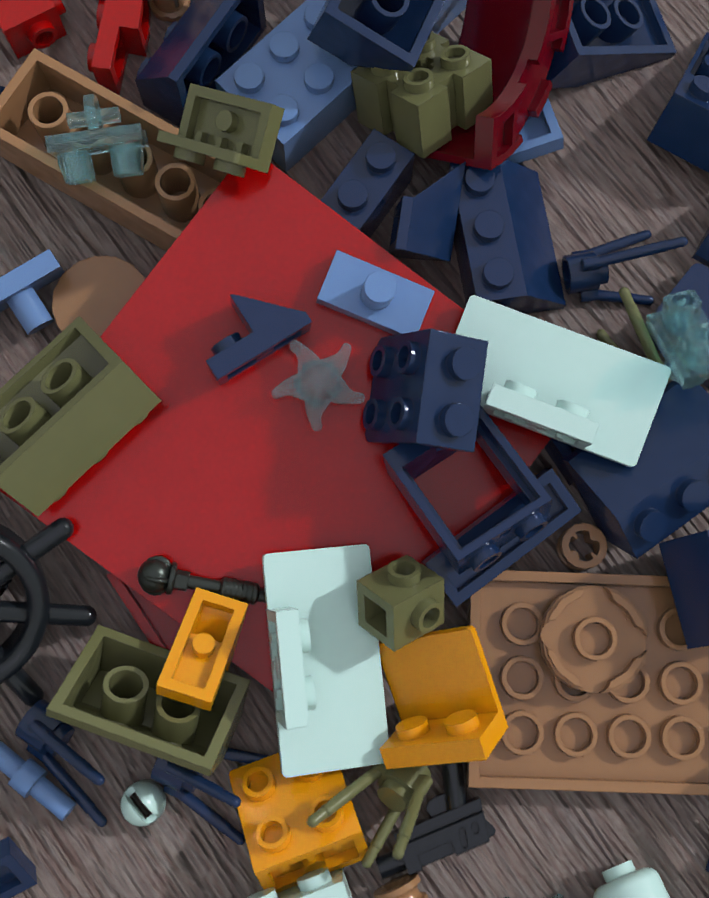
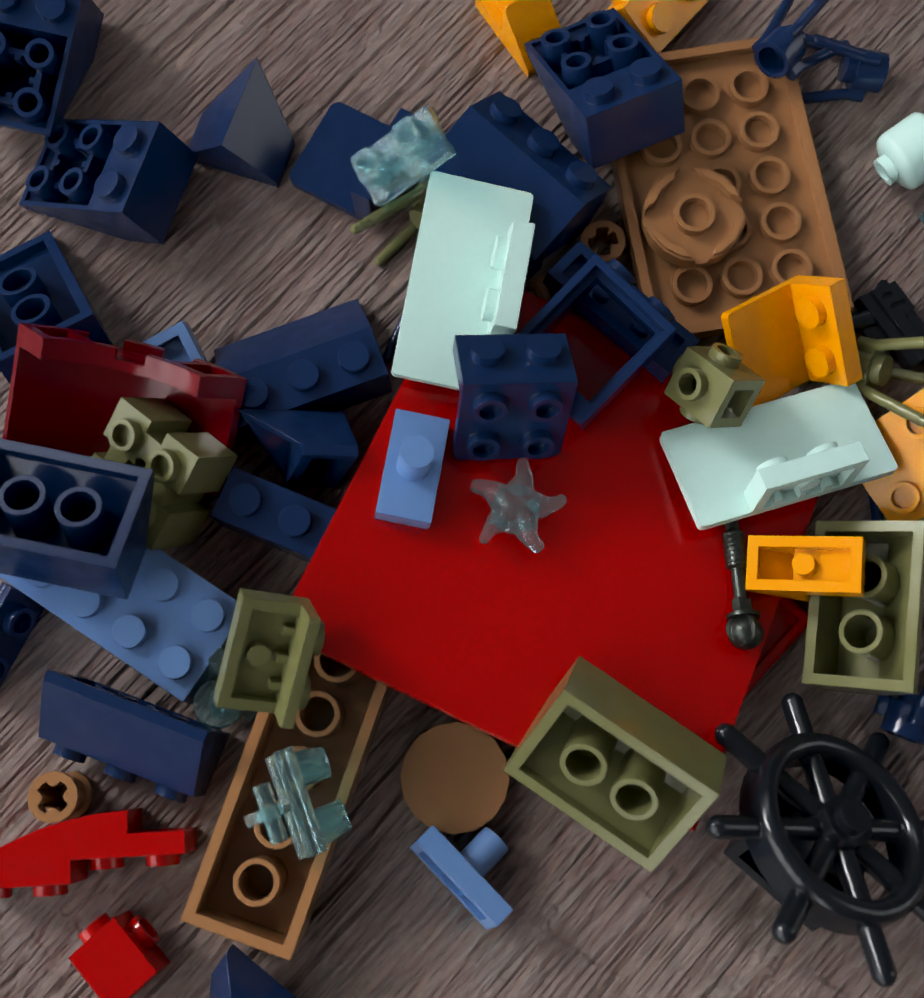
camera: 95 degrees left, 0 degrees up
(269, 329) = (479, 563): dark blue slope -> none
(588, 269) = (320, 282): dark blue plant -> none

